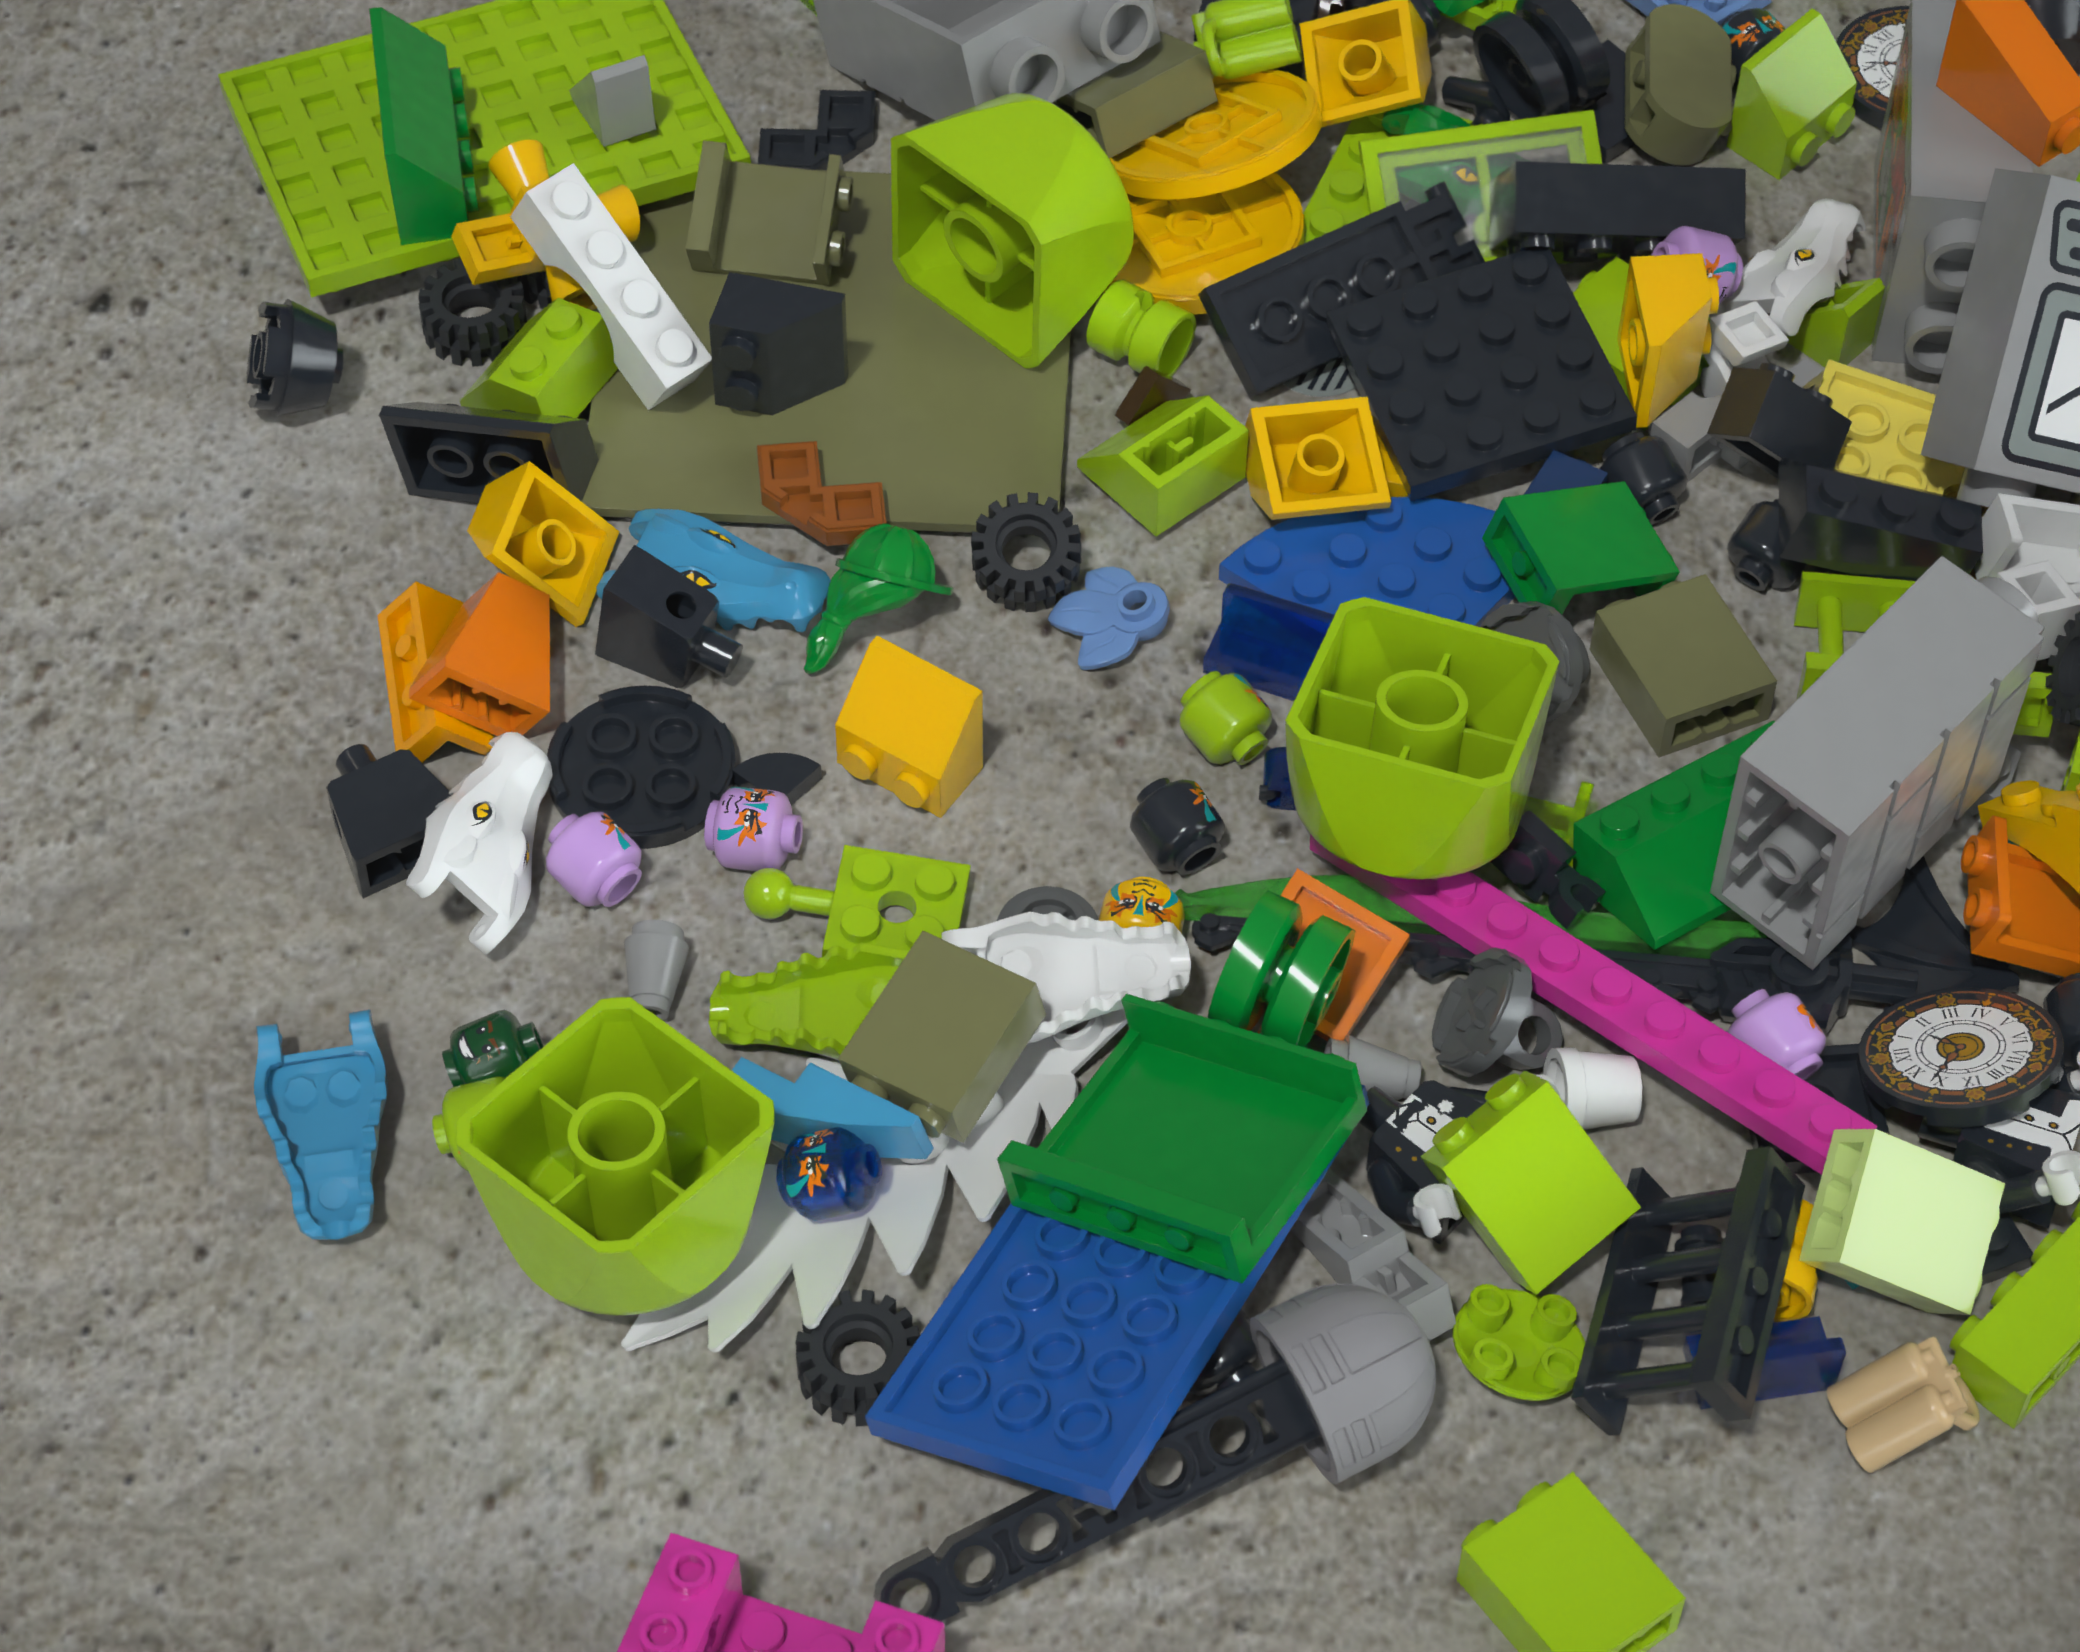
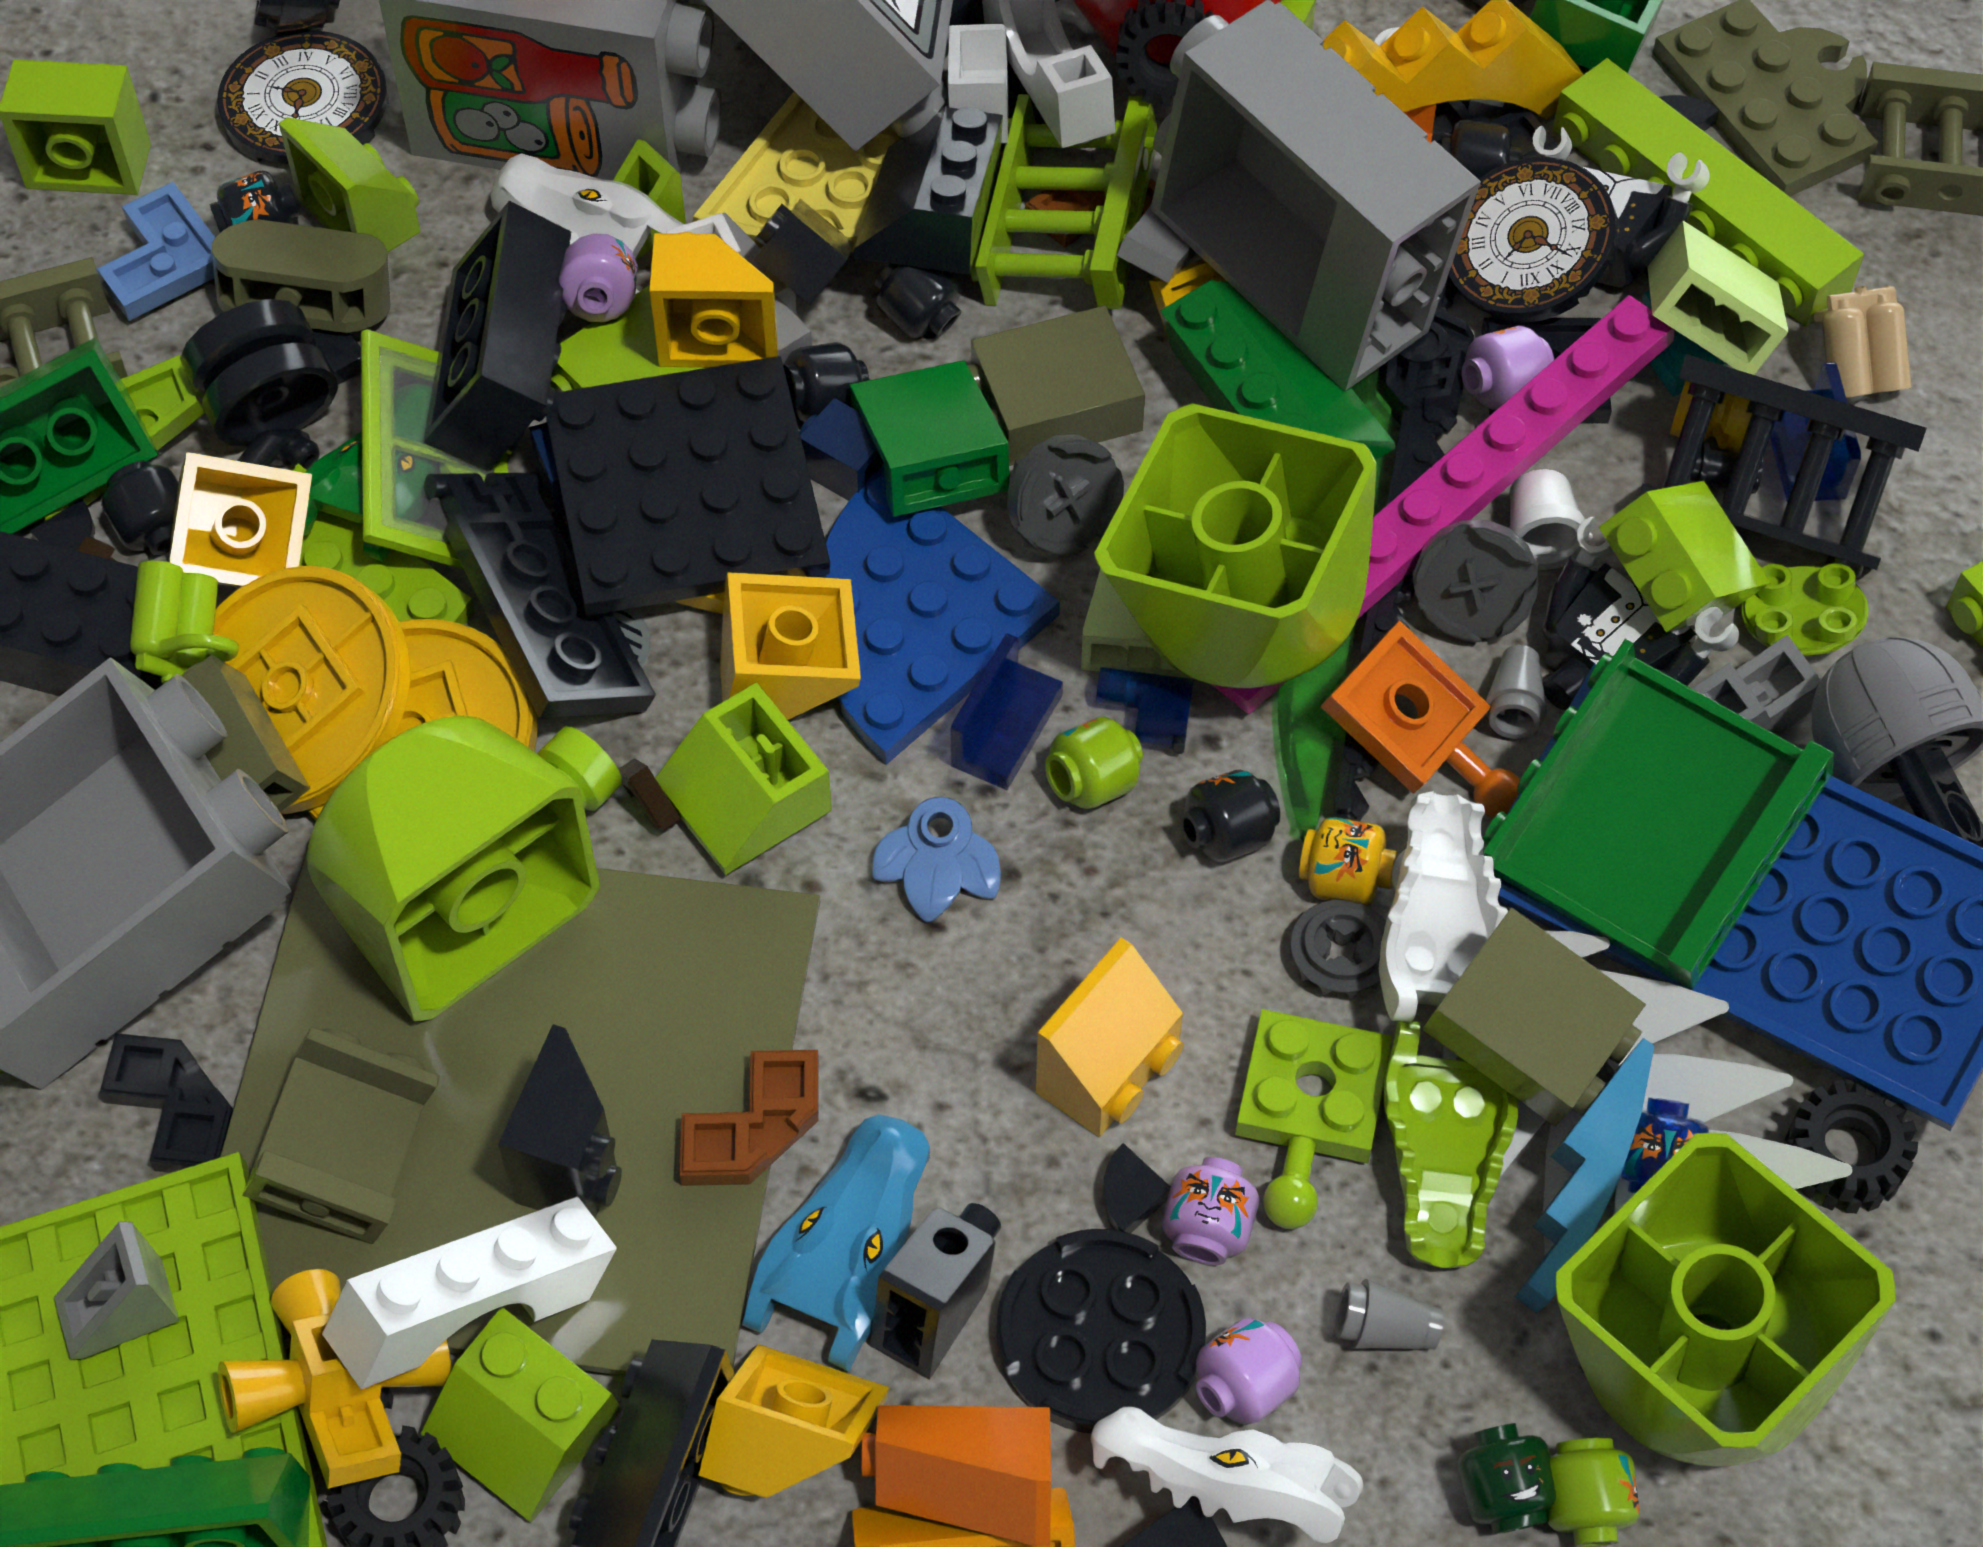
camera: 85 degrees left, 5 degrees up
(877, 574) = (901, 1069): green piece -> none
(1026, 519) = (875, 891): black tyre -> none
(1275, 973) = (1478, 712): green wheel -> none

